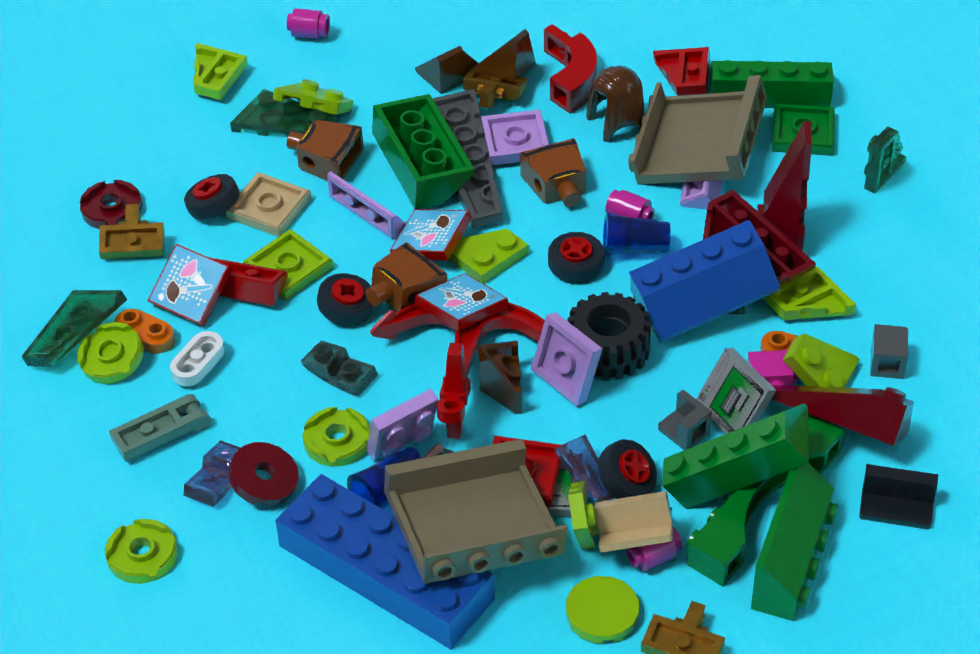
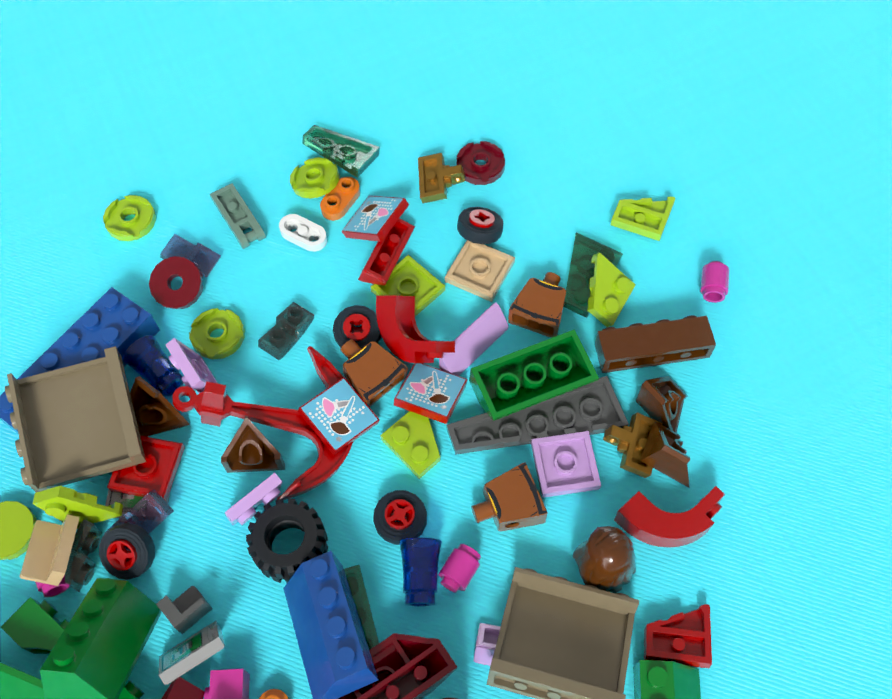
camera: 90 degrees right, 15 degrees up
(380, 240) = (401, 334): none -> red arch
(382, 60) = (654, 343): none -> reddish brown brick

